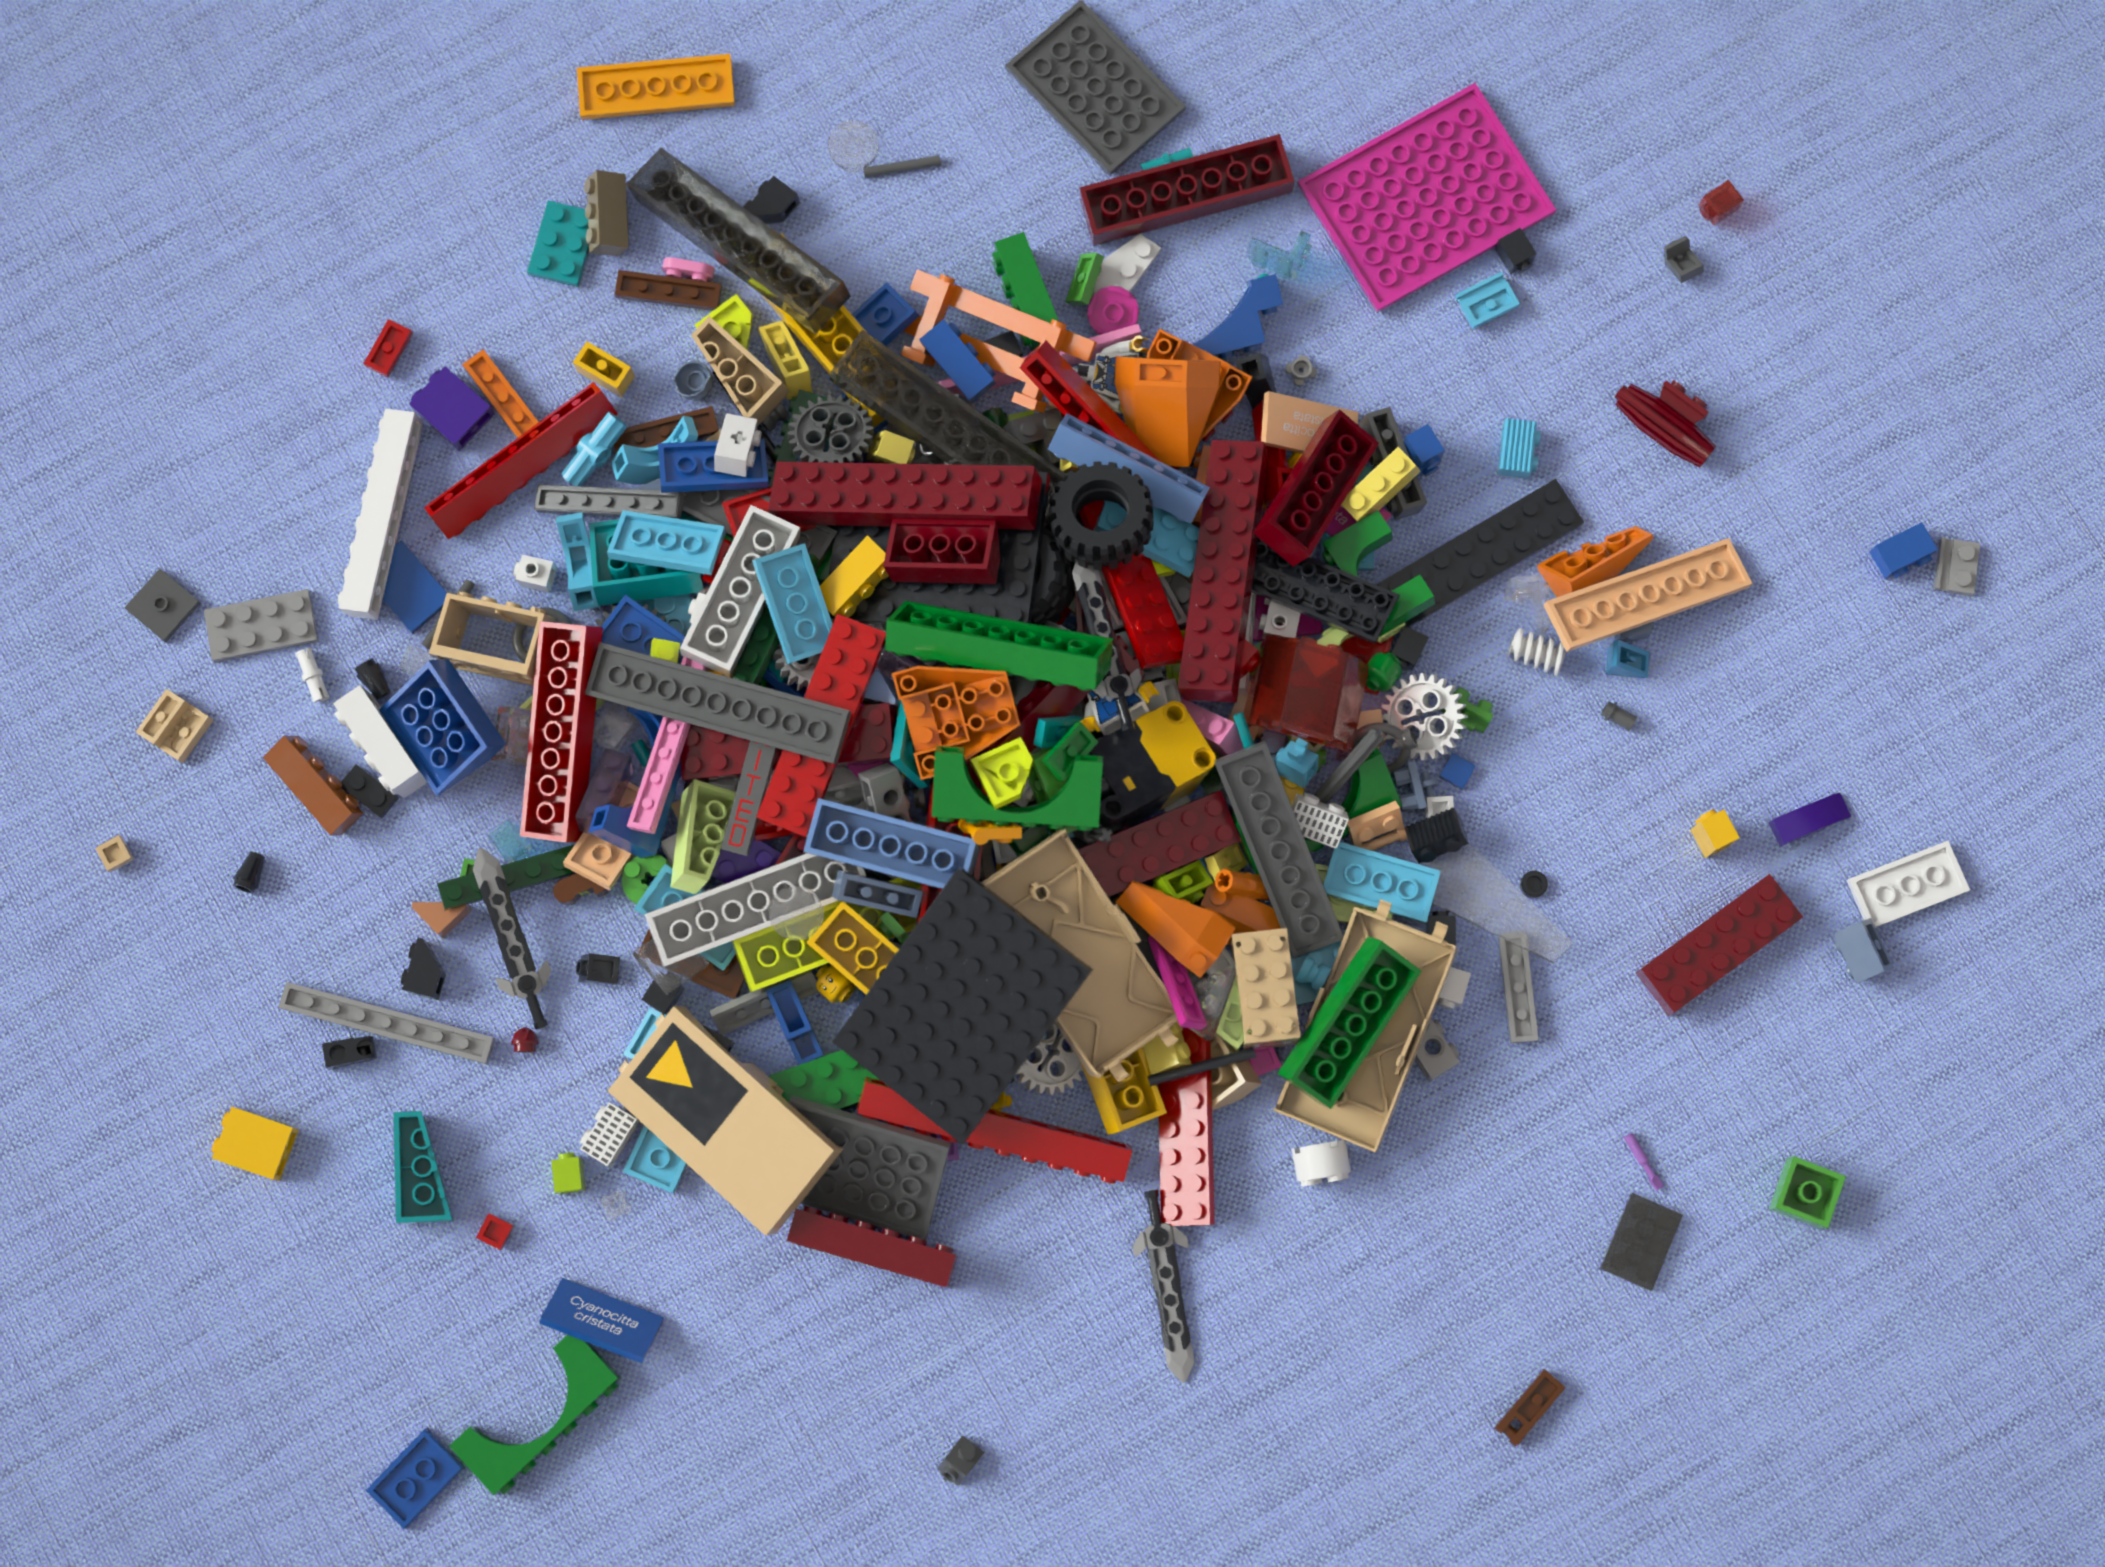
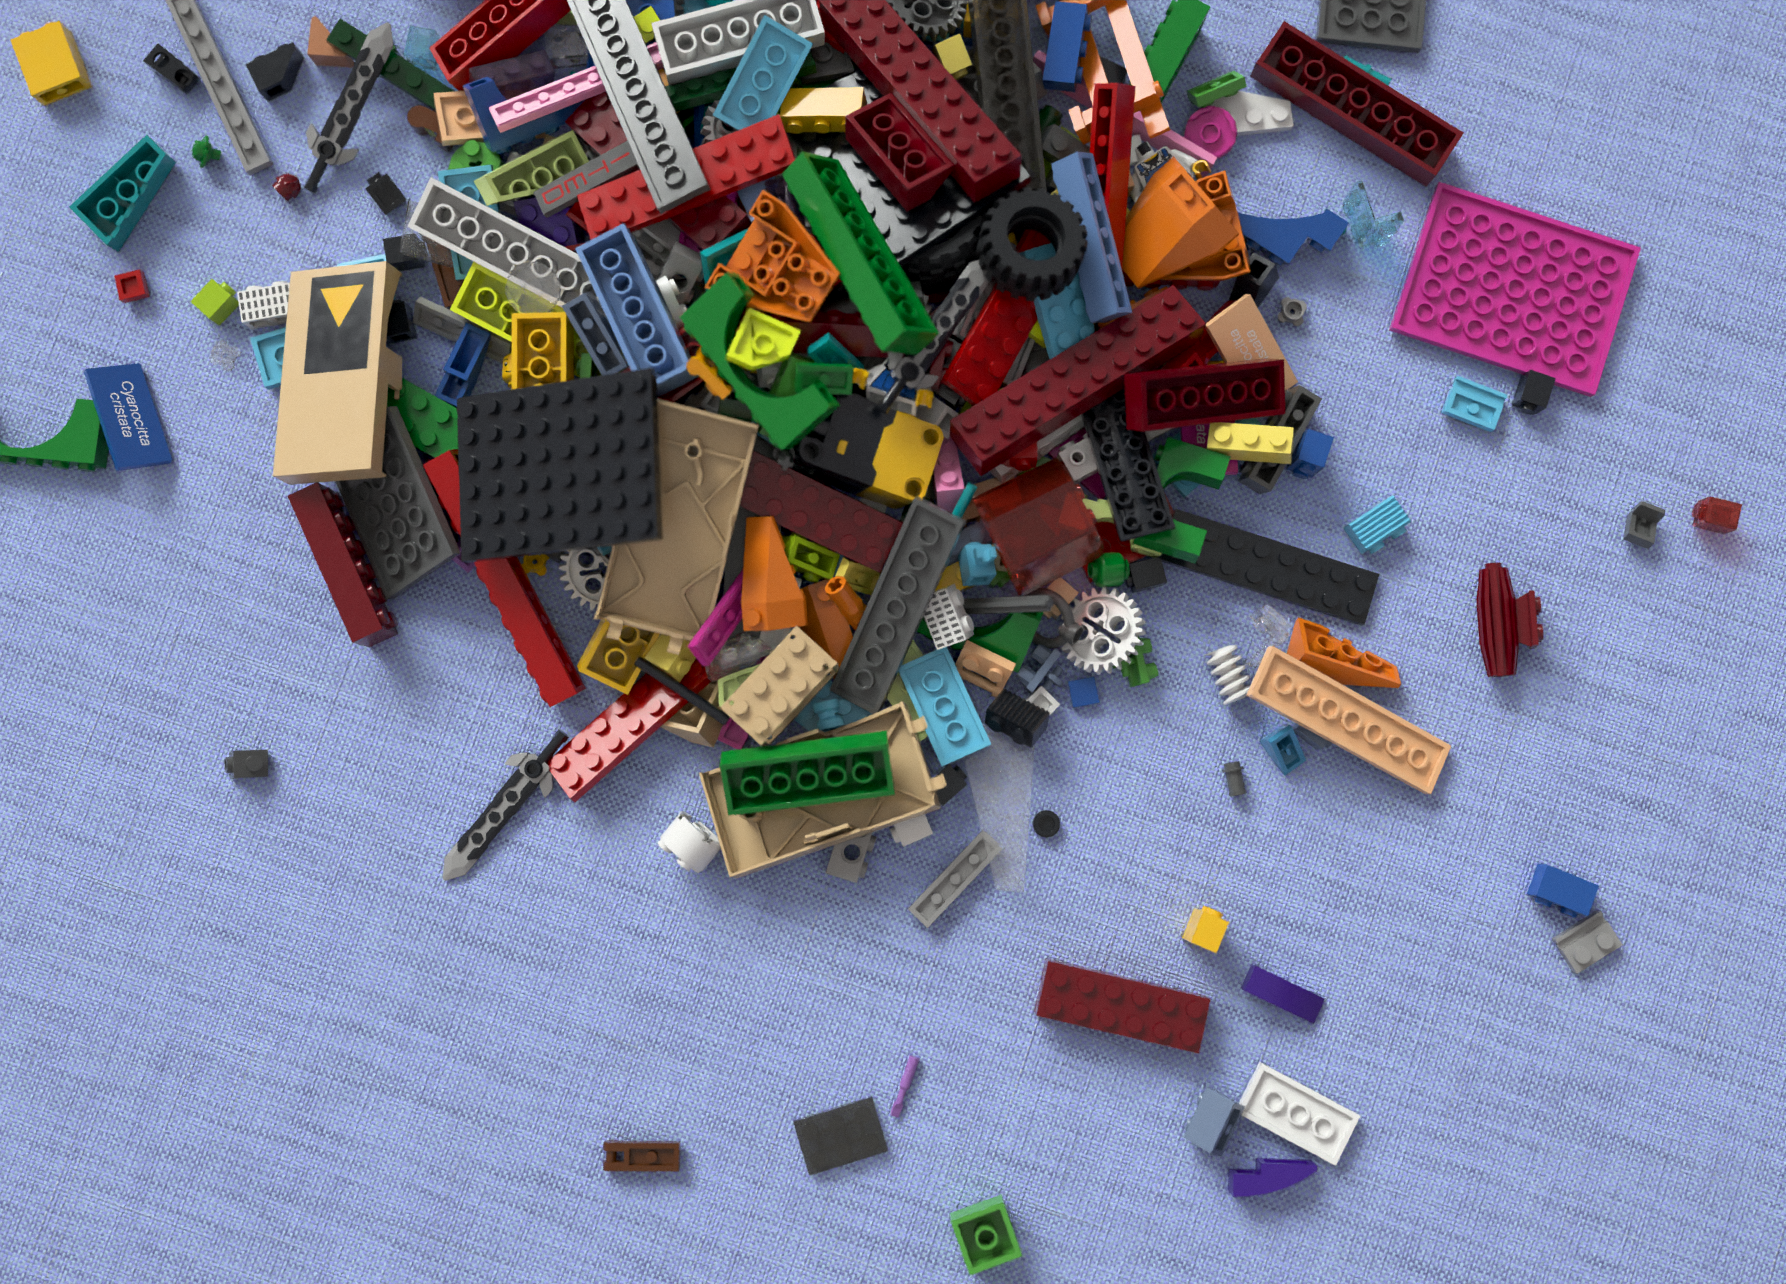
camera: 50 degrees right, 5 degrees up
(437, 1082) = (204, 152): none -> green plant
(895, 810) = (669, 291): none -> white plate
(1937, 946) = (1268, 1176): none -> dark purple slope

